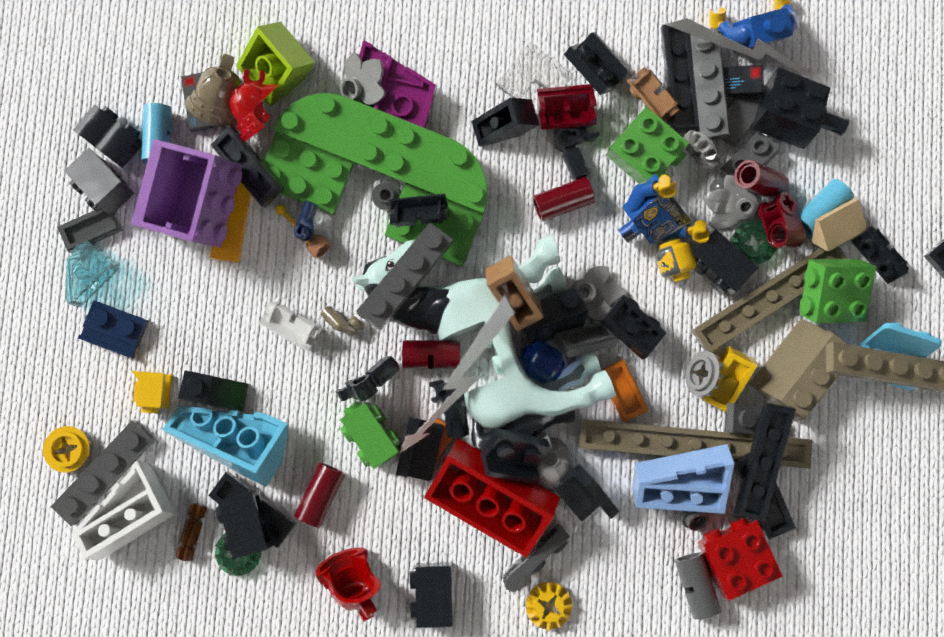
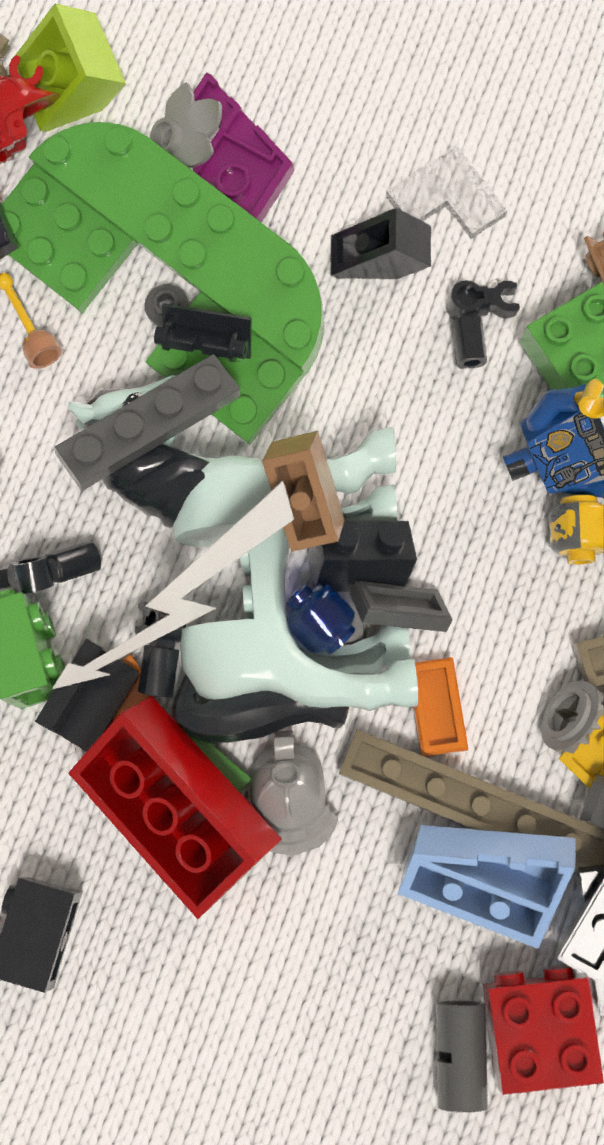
camera: 20 degrees right, 5 degrees down
(305, 224) = (28, 313): dark blue arm -> none
(338, 323) = (31, 471): dark tan arm -> none
(430, 354) = (148, 556): dark red pin -> none
(514, 456) = (227, 748): black bracket -> none
(544, 592) = (236, 1013): yellow gear -> none
(551, 542) = (212, 927): dark grey hinge -> none
(563, 199) = (434, 387): dark red pin -> none
(566, 106) = (480, 251): dark red hinge -> none
(584, 494) = (321, 847): black panel -> none
(597, 63) = (547, 203): black bracket -> none
(600, 291) = (449, 546): light grey plate -> none
(633, 326) = (481, 608): black bracket -> none
(694, 520) = (488, 946): dark grey plate -> none

